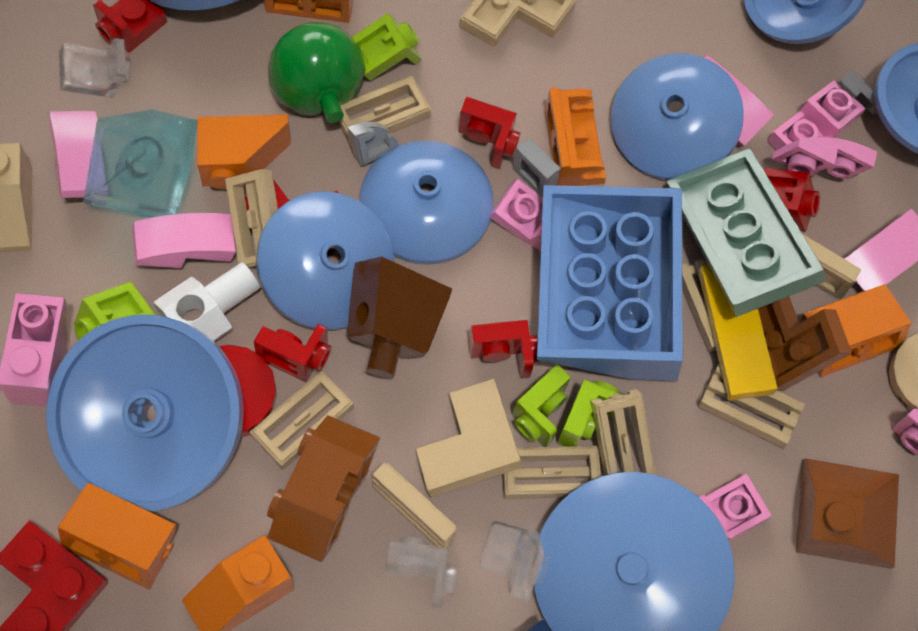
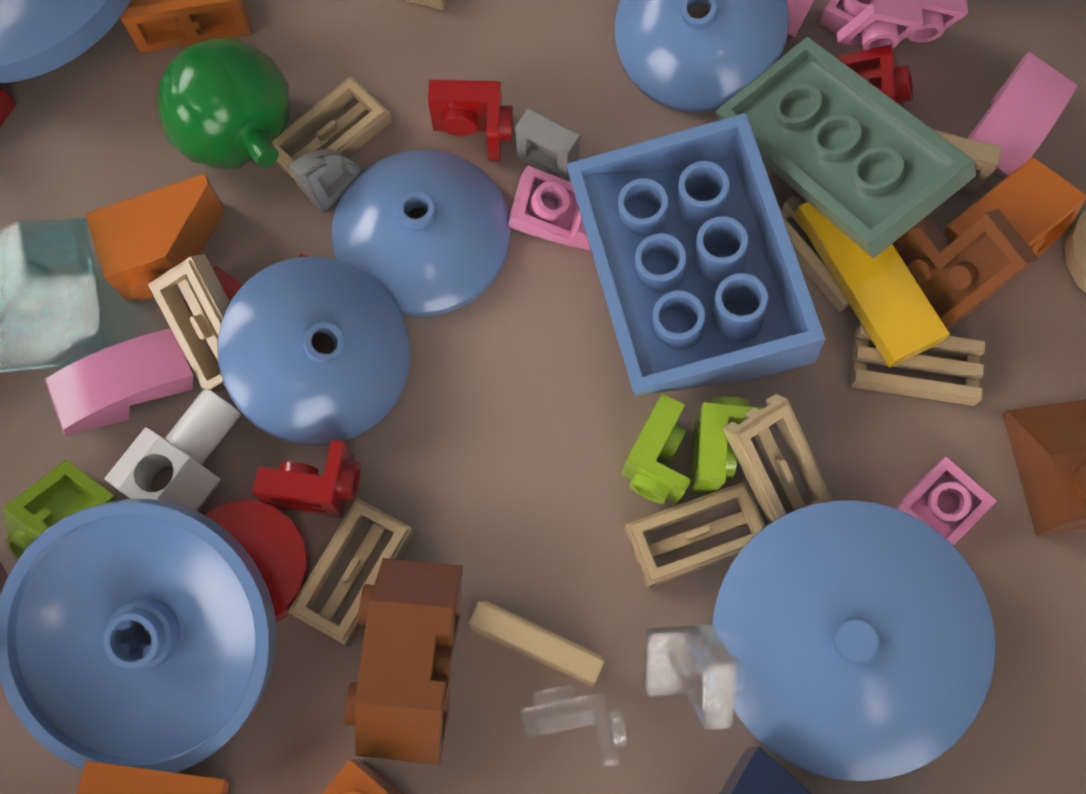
camera: 10 degrees left, 5 degrees up
(386, 44) = (305, 45): lime bracket -> none
(394, 312) = (426, 392): reddish brown torso -> none
(482, 448) = (600, 532): tan tile -> none
(501, 339) = (573, 386): red bracket -> none
(574, 137) = (581, 91): orange hinge -> none

